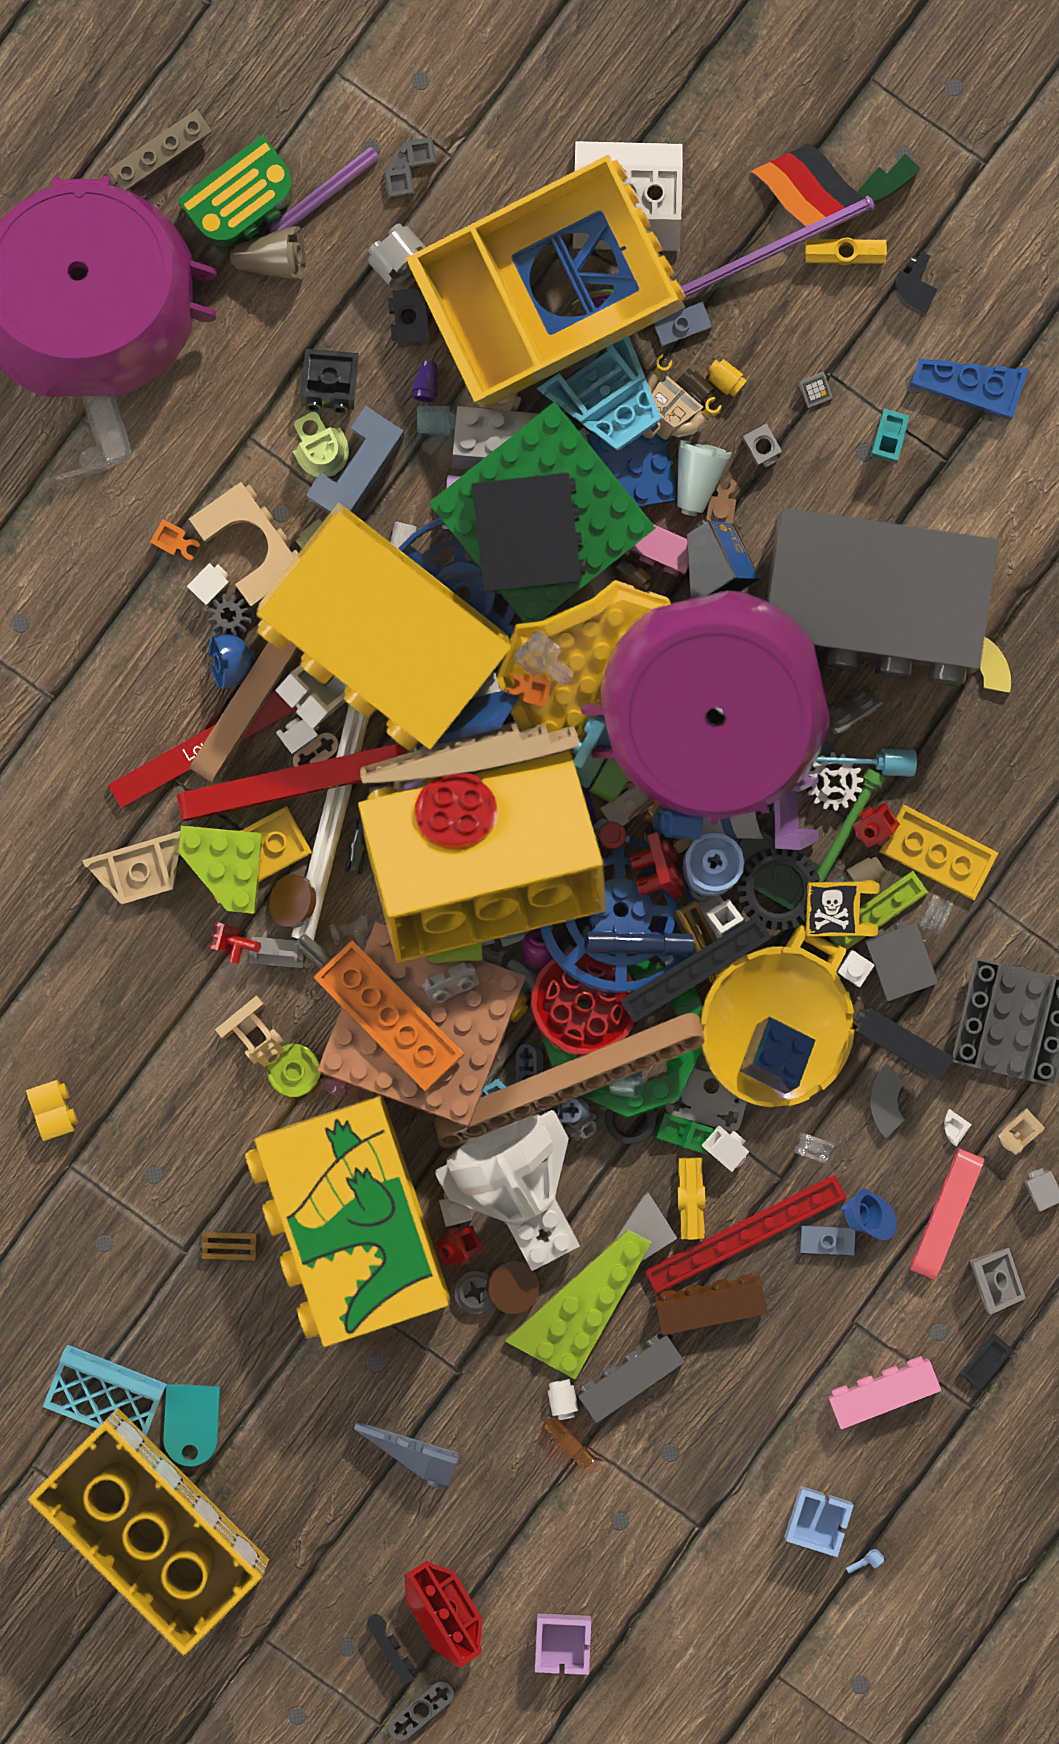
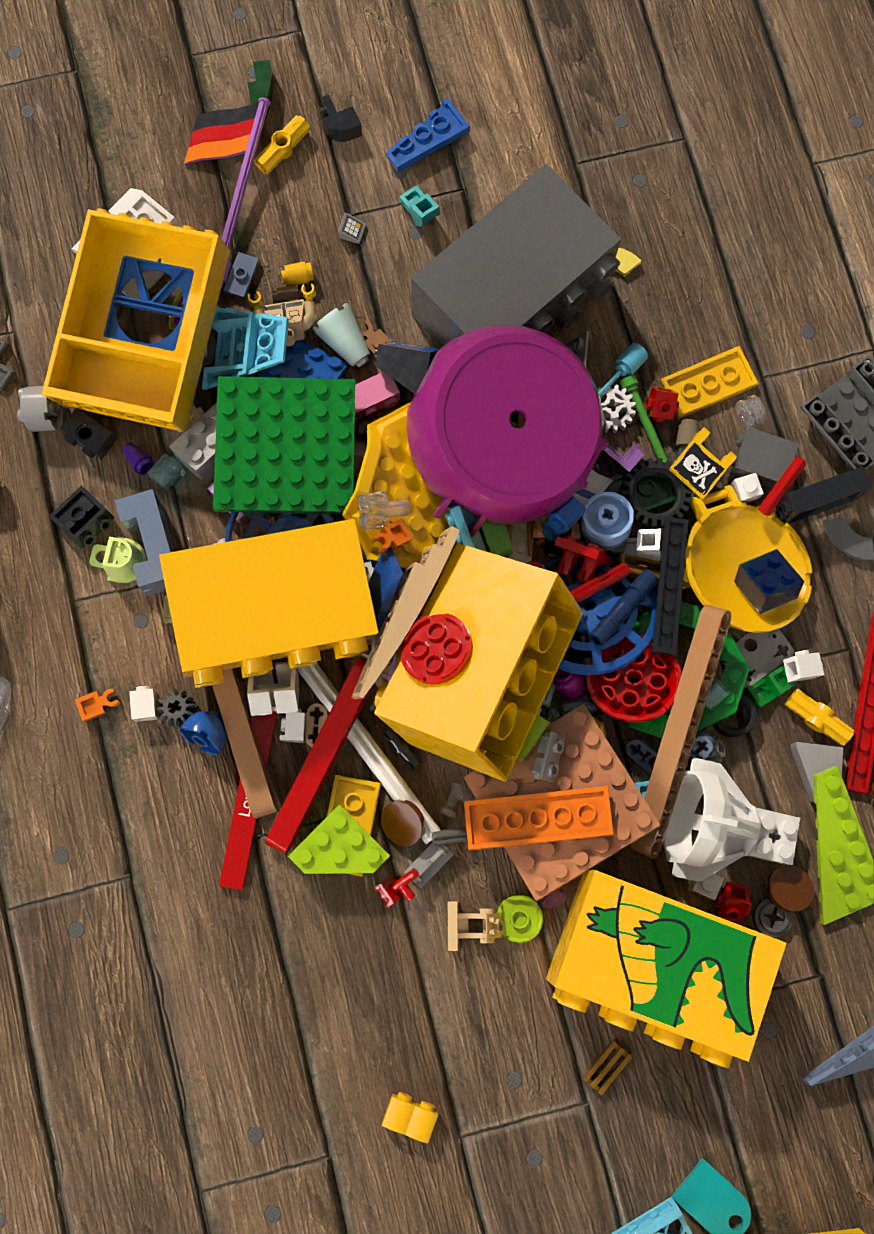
camera: 55 degrees left, 10 degrees down
(139, 868) = (293, 912): tan wing -> none
(239, 507) = (111, 643): tan arch -> none
(527, 531) = (286, 457): black panel -> none
(645, 903) = (600, 582): none -> red axle
(762, 434) = (354, 278): light grey brick -> none
(816, 1145) = (849, 605): clear wheel -> none
(880, 999) = (782, 486): none -> red axle
(886, 906) = (719, 439): lime tile -> none

